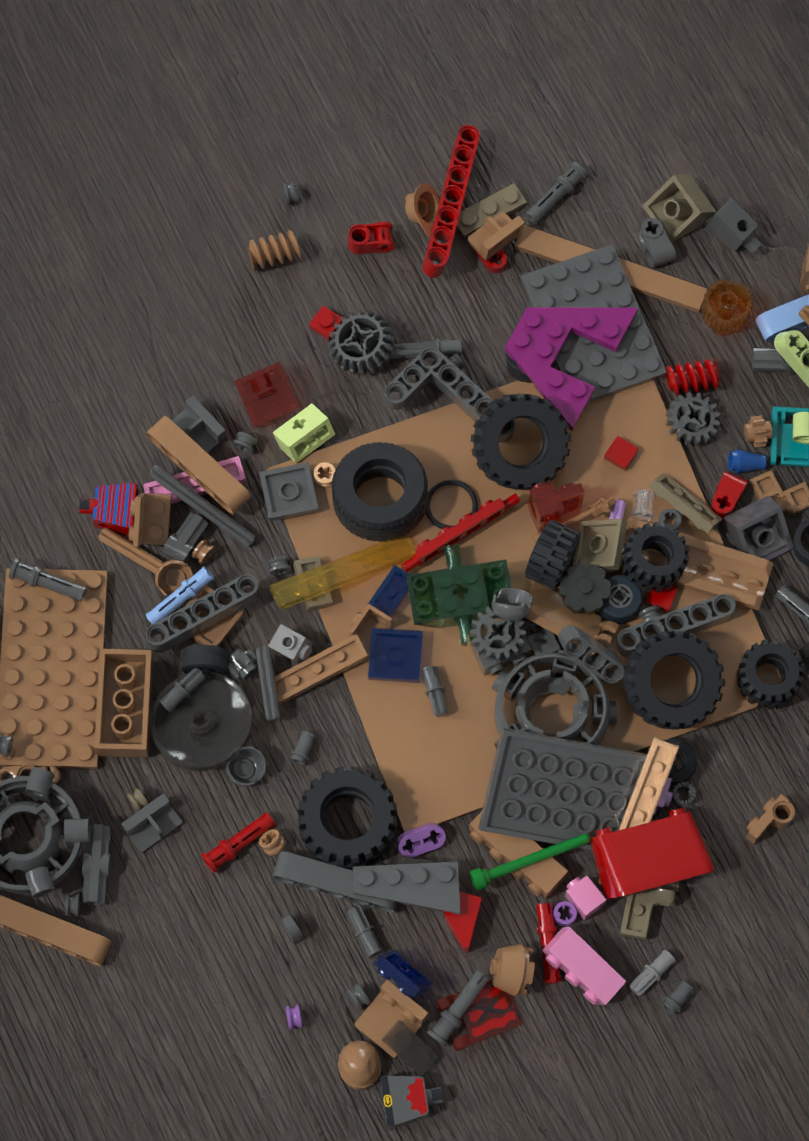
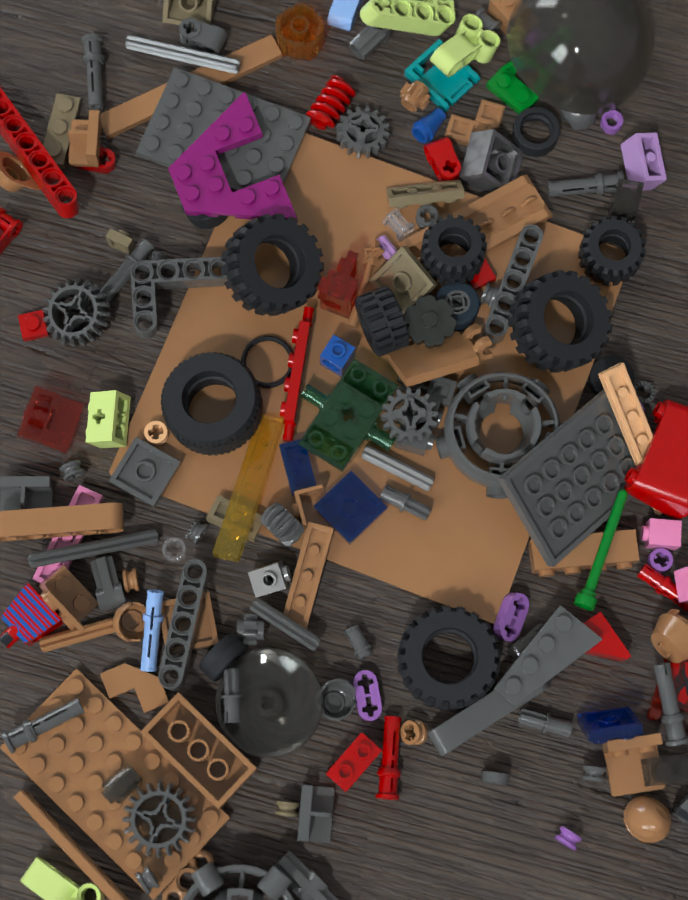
camera: 50 degrees left, 5 degrees up
(53, 669) = (121, 784): none -> clear smoke brick
(60, 711) = (163, 806): none -> dark grey gear
(132, 612) = (126, 678): none -> medium nougat tile
(211, 817) = (353, 762): none -> red brick
(252, 571) = (180, 544): none -> clear bush
(274, 792) = (361, 696): none -> medium lavender beam
(337, 617) = (282, 524): none -> dark grey gear
(444, 324) = (120, 240): none -> dark tan plate
(456, 664) = (397, 468): none -> light grey axle
(500, 546) = (337, 355): none -> blue brick
(512, 604) = (401, 383): dark grey hair -> none
(585, 646) = (489, 362): dark grey beam -> none
(621, 453) = (342, 204): red tile -> none
(629, 241) = (183, 54): none -> axle

